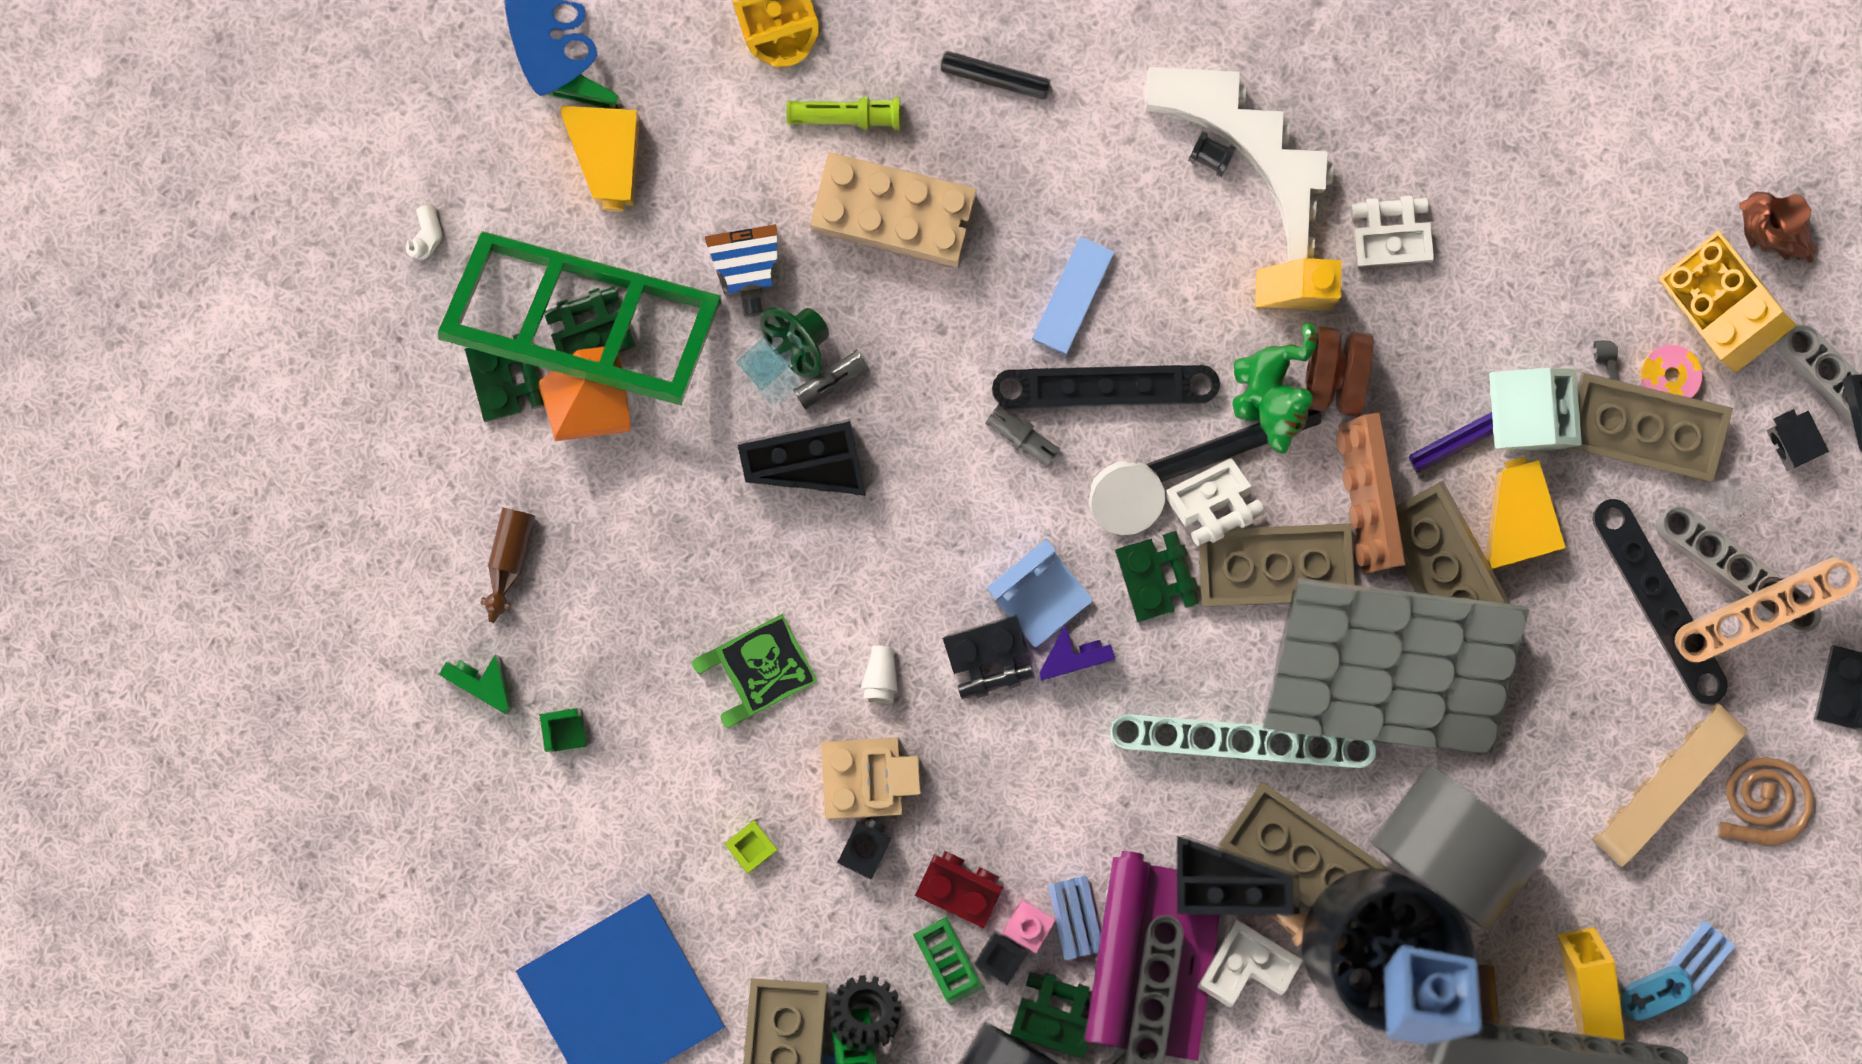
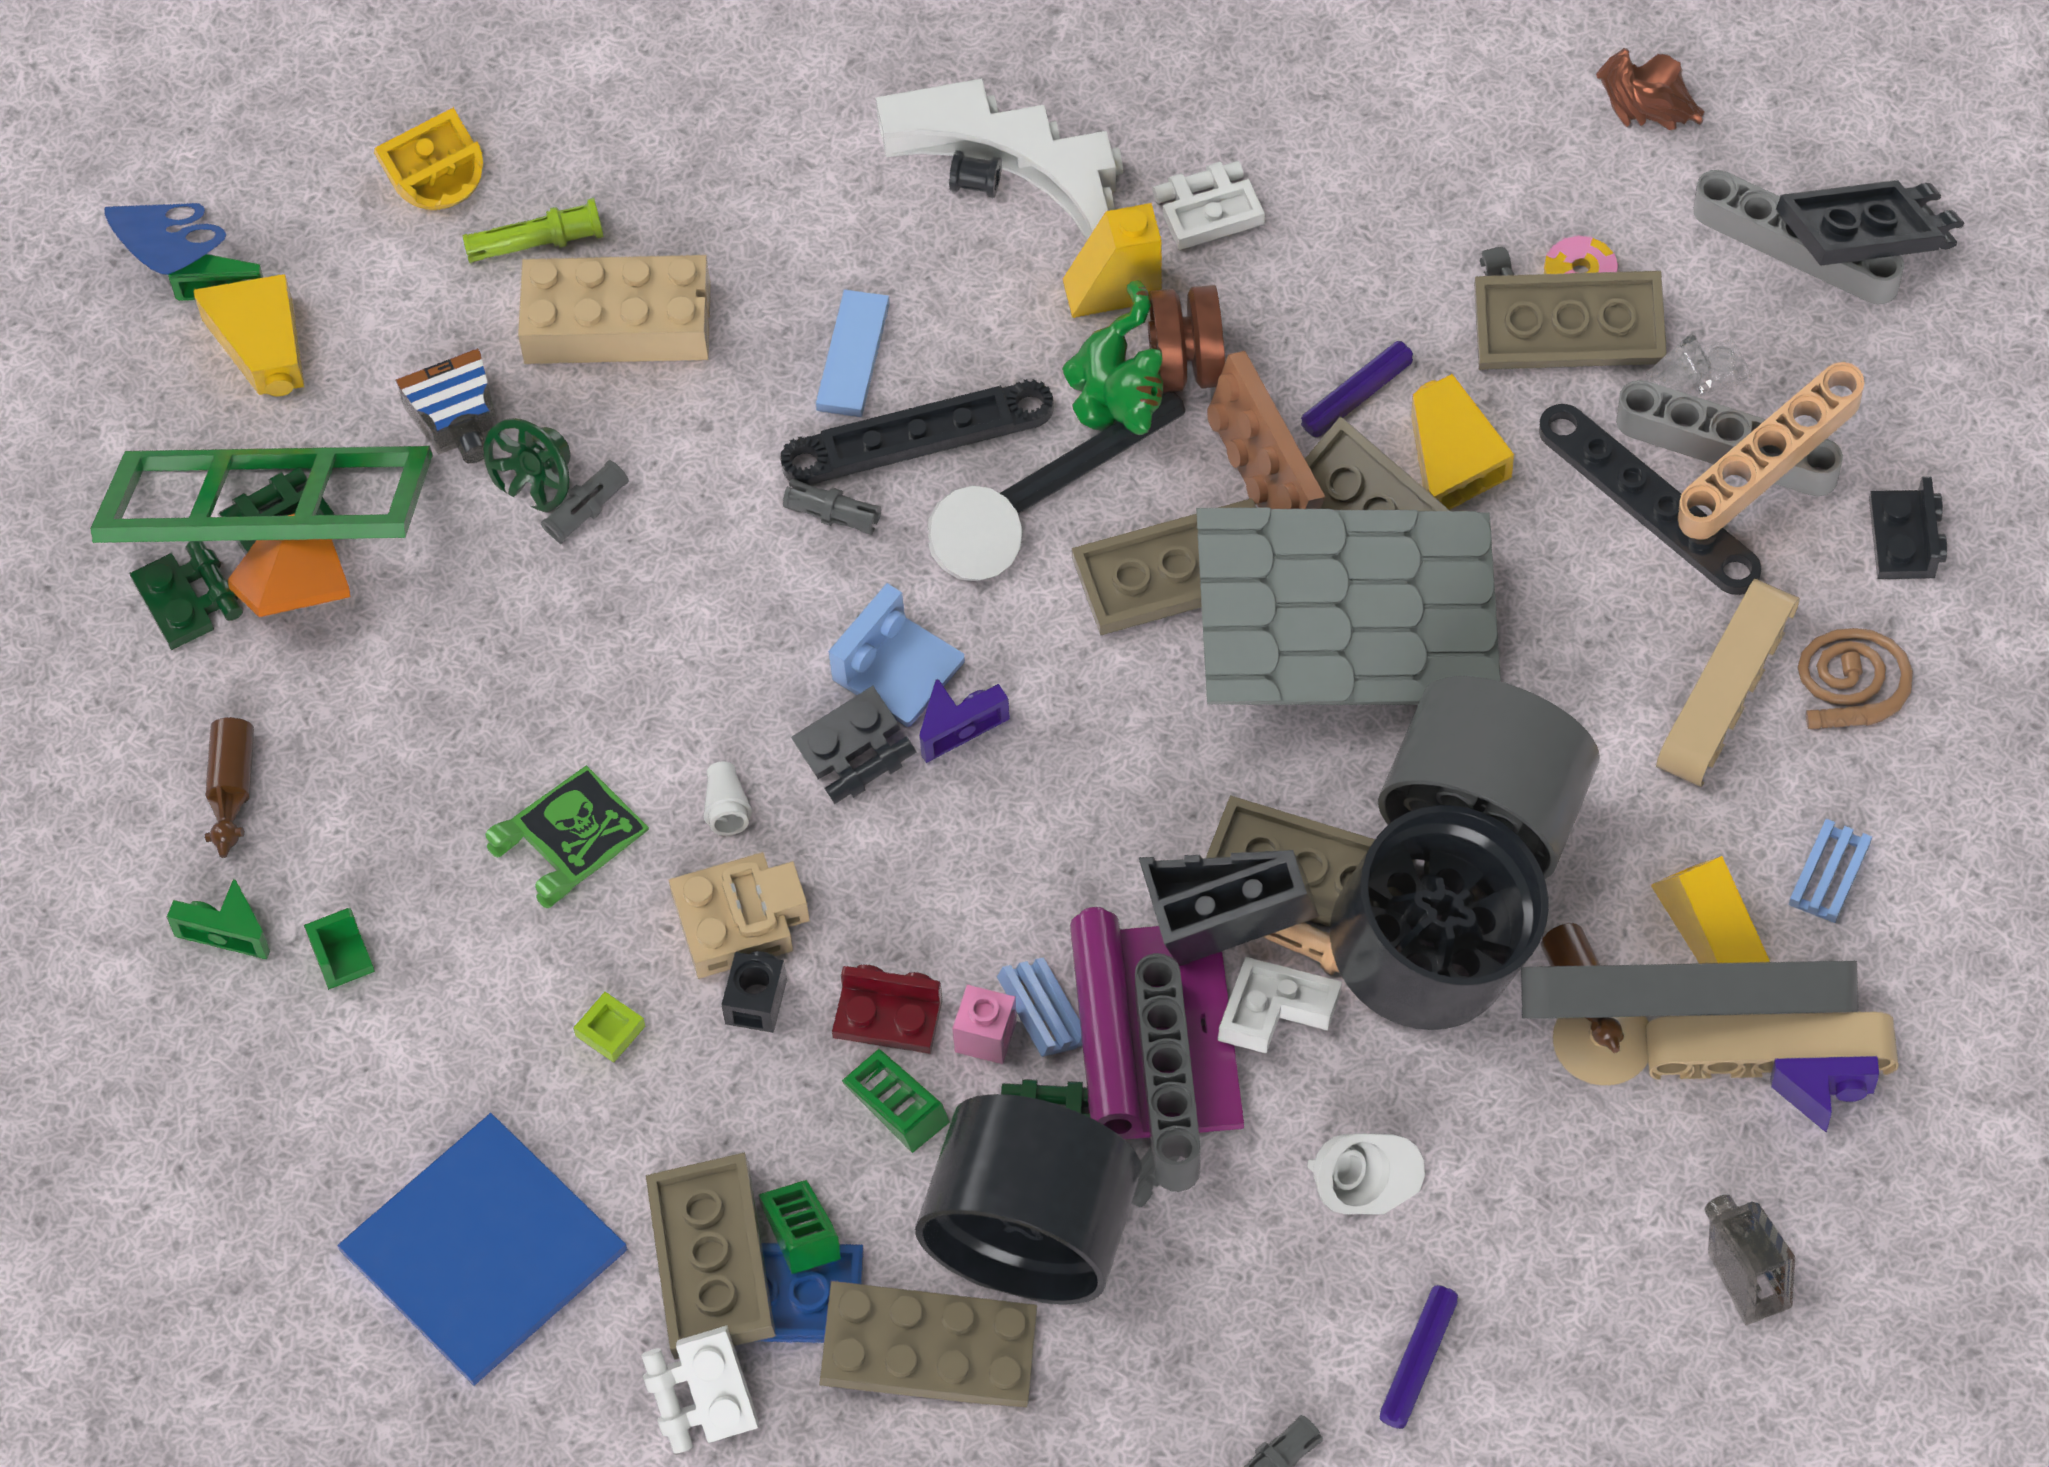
camera: 15 degrees left, 25 degrees down
(428, 237) = (62, 471): white arm -> none
(763, 363) = (498, 503): clear light blue plate -> none
(806, 458) = (572, 582): black wedge -> none
(868, 993) = (802, 1172): black tyre -> none
(995, 75) = (701, 159): black axle -> none
(1001, 957) = (958, 1064): black brick -> none
(1145, 579) = (1023, 622): dark green plate -> none
(1209, 492) = (1072, 508): white plate -> none
(1223, 747) = (1208, 743): light aqua beam -> none
(1431, 996) = (1501, 922): medium blue slope -> none
(1535, 409) = (1431, 324): light aqua slope -> none
(1653, 985) = (1802, 917): dark azure beam -> none
(1727, 302) = (1620, 174): yellow slope -> none
(1797, 439) = (1749, 292): black brick -> none

